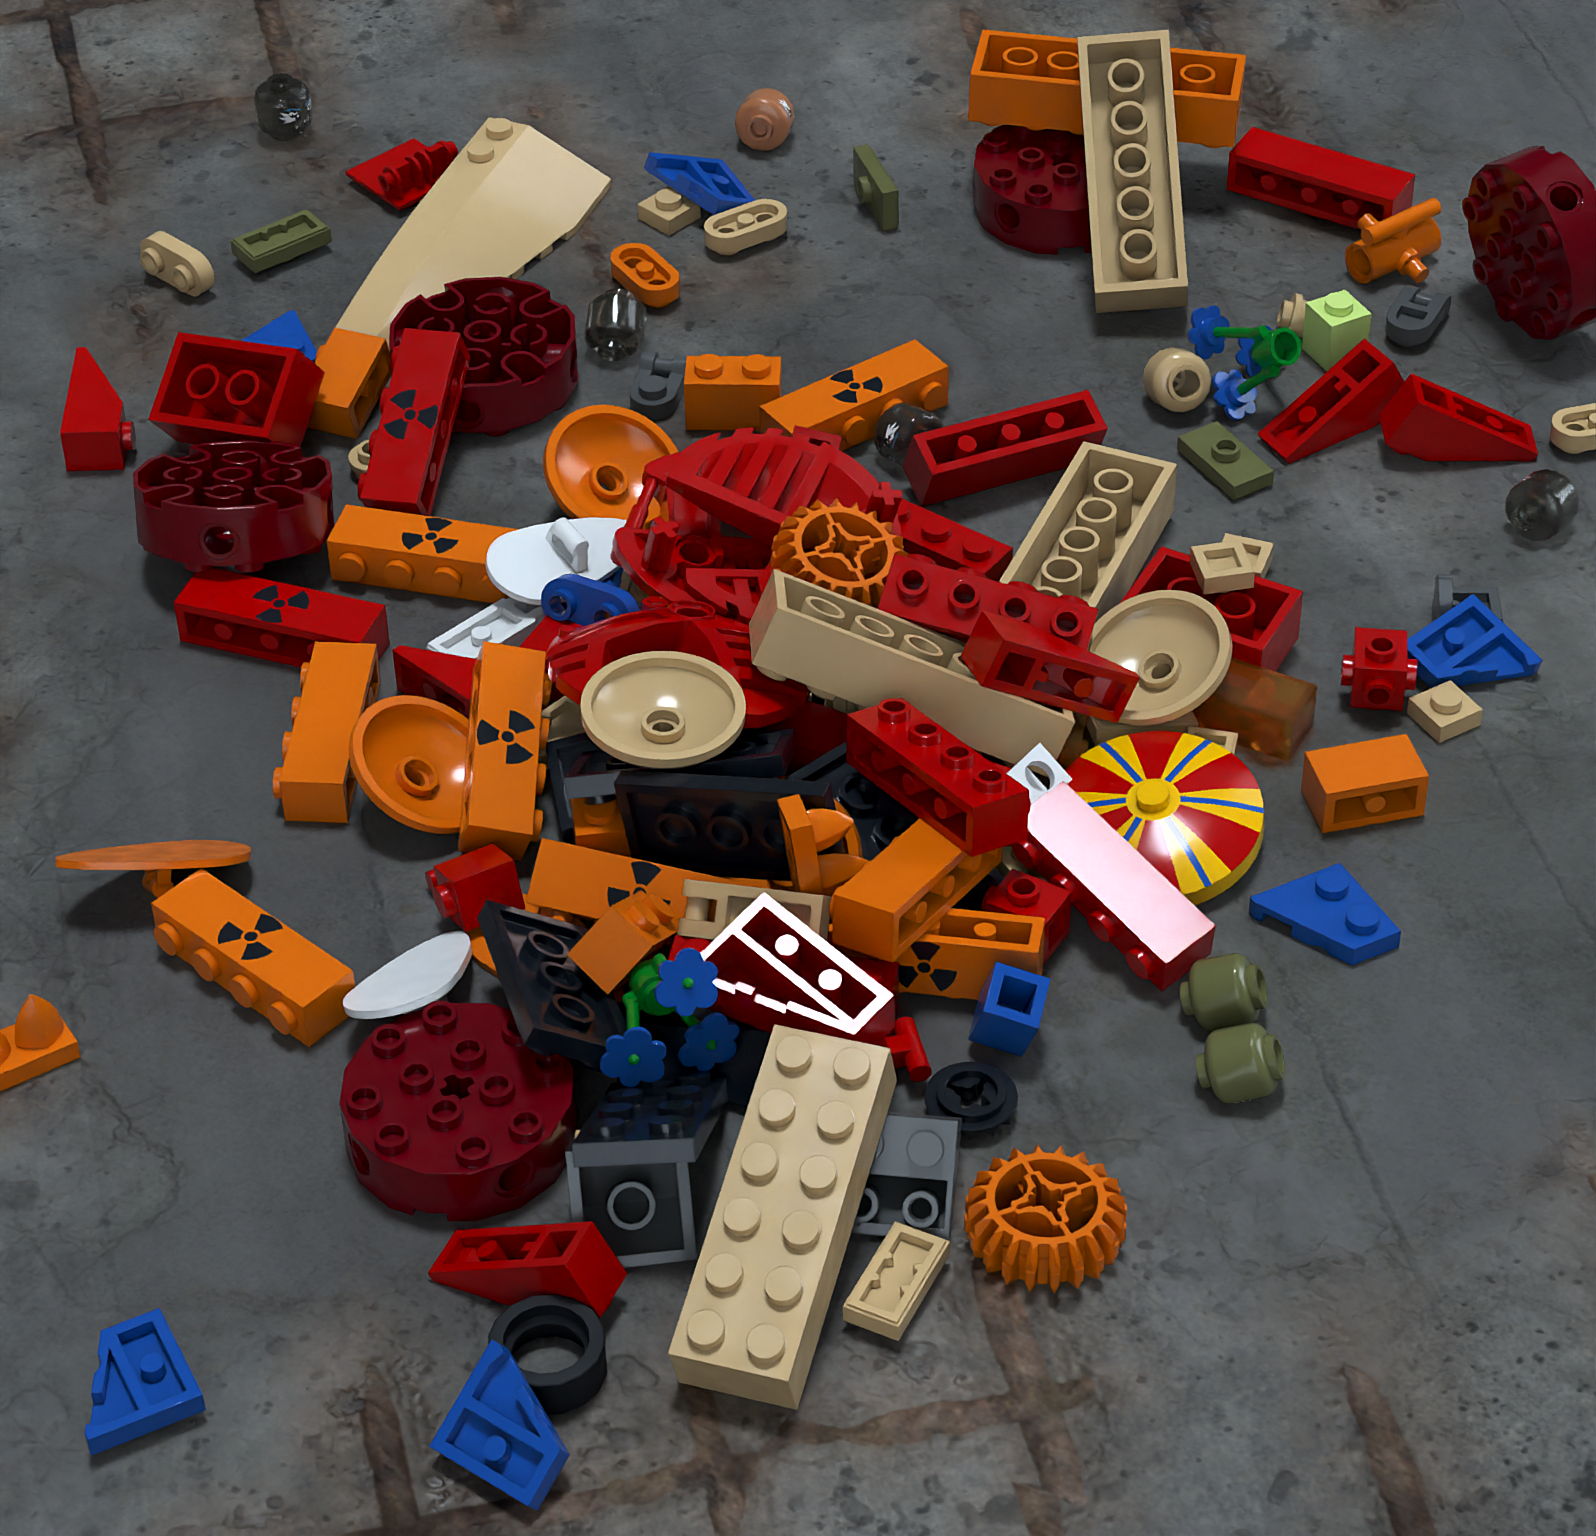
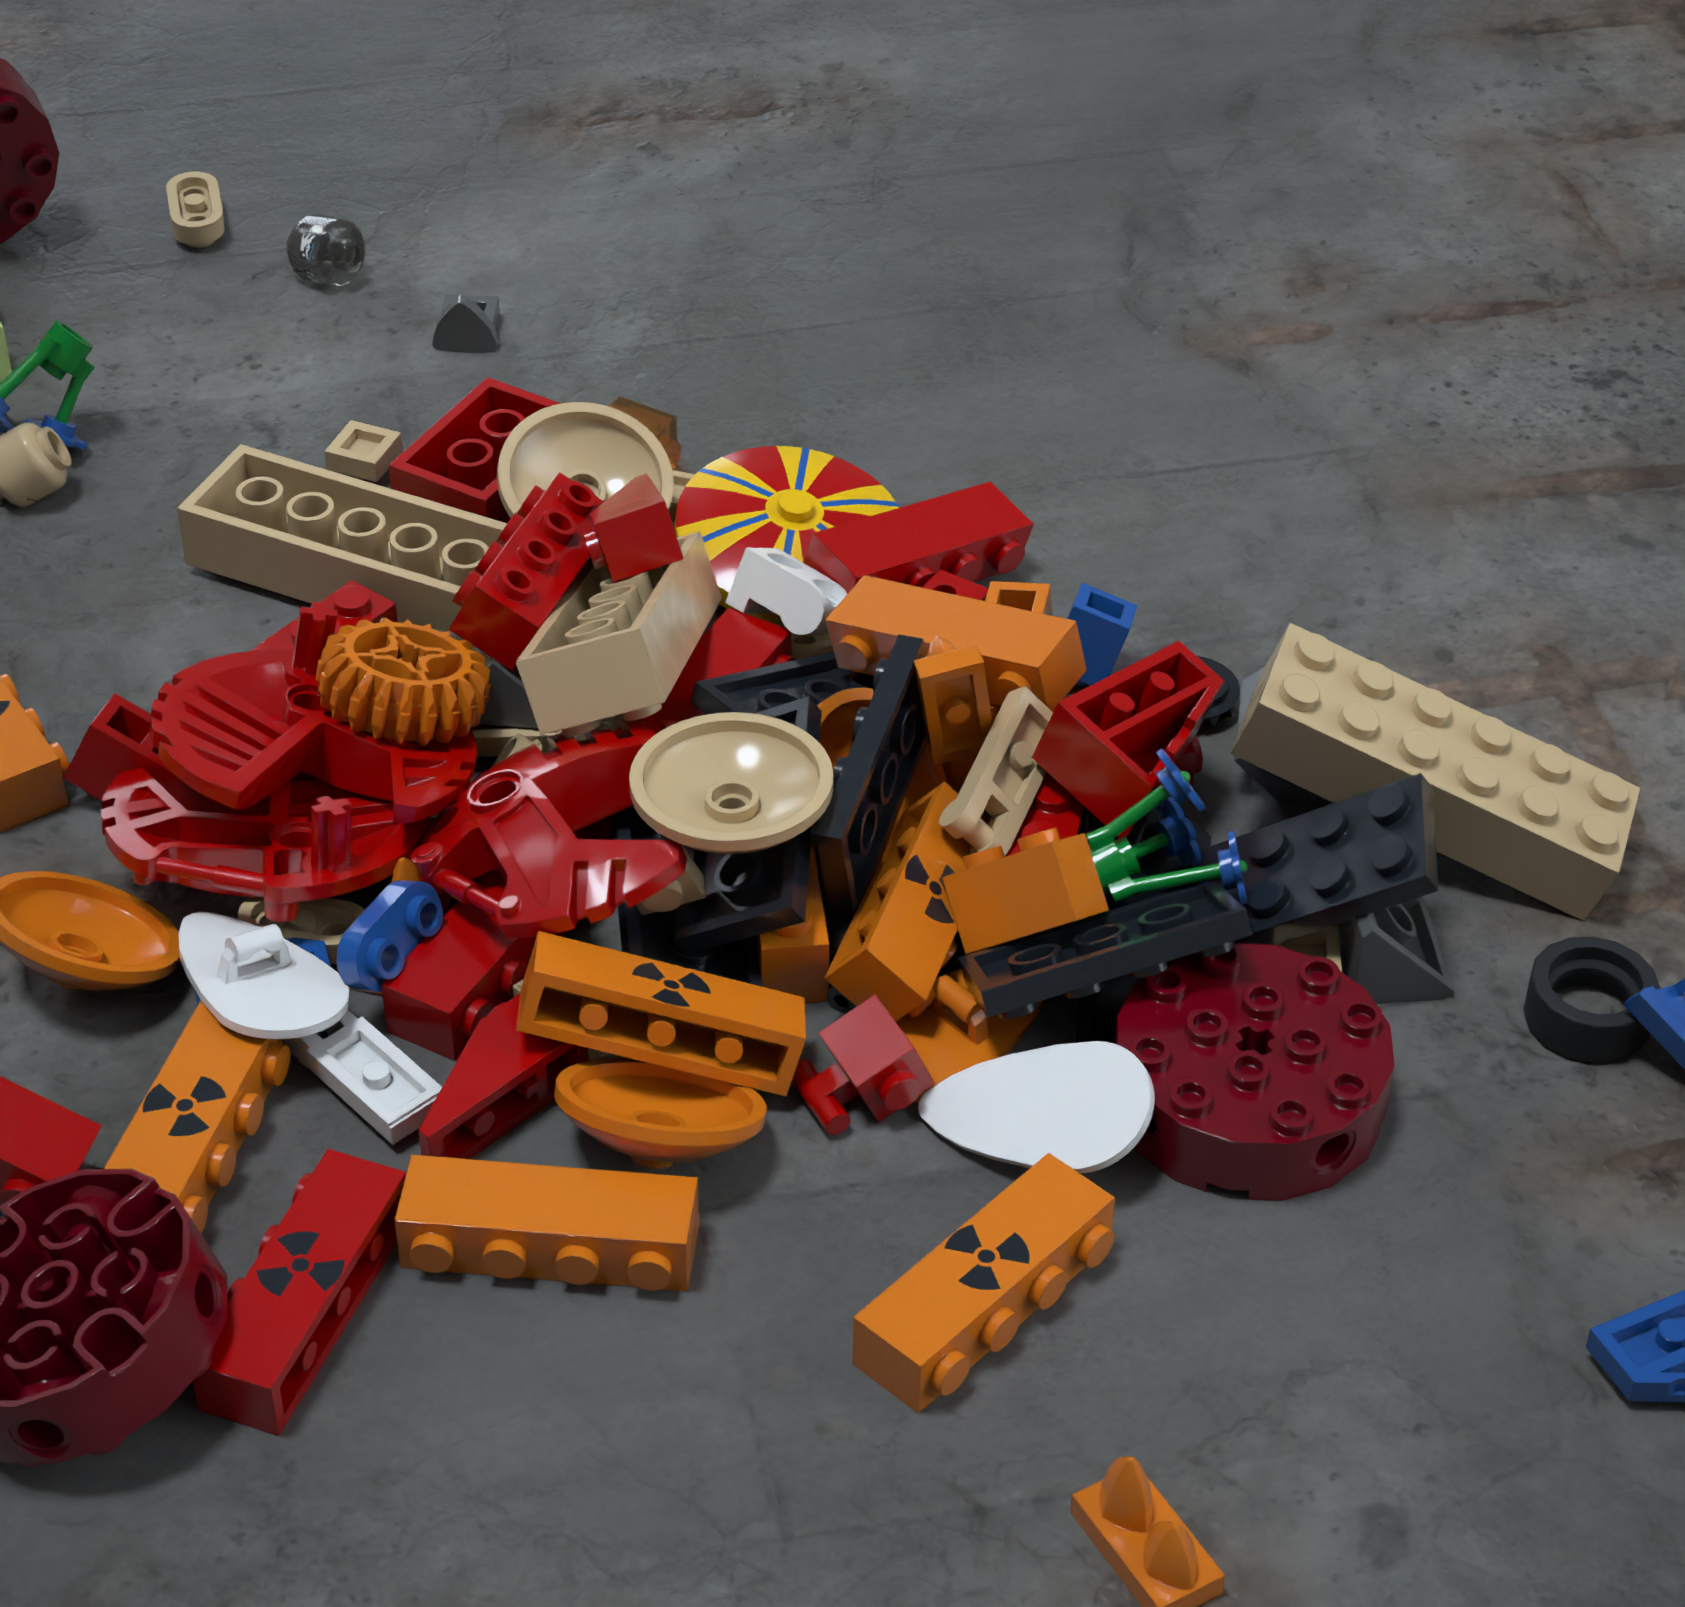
camera: 90 degrees left, 0 degrees up
(158, 859) = (809, 1377): orange shield -> none
(532, 1261) = (1477, 1010): red slope -> none
(897, 427) = (63, 679): clear smoke head -> none
(937, 777) = (827, 600): red brick -> none
(1001, 447) = (130, 593): red brick -> none
(1030, 1215) = (1372, 622): orange gear -> none
(1222, 567) = (461, 410): tan plate -> none
(1224, 991) = (1054, 502): olive head -> none
(1225, 460) = (166, 456): olive plate -> none
(1241, 1063) = (1149, 502): olive head -> none
(1330, 913) = (918, 446): blue wing -> none
(1336, 405) = (122, 372): red slope -> none
(1364, 783) = (743, 397): orange brick -> none
(1378, 669) = (582, 365): red brick -> none
(1444, 711) = (625, 351): tan plate -> none
(1450, 427) = (175, 295): red slope -> none
(1470, 648) = (539, 321): blue wing -> none

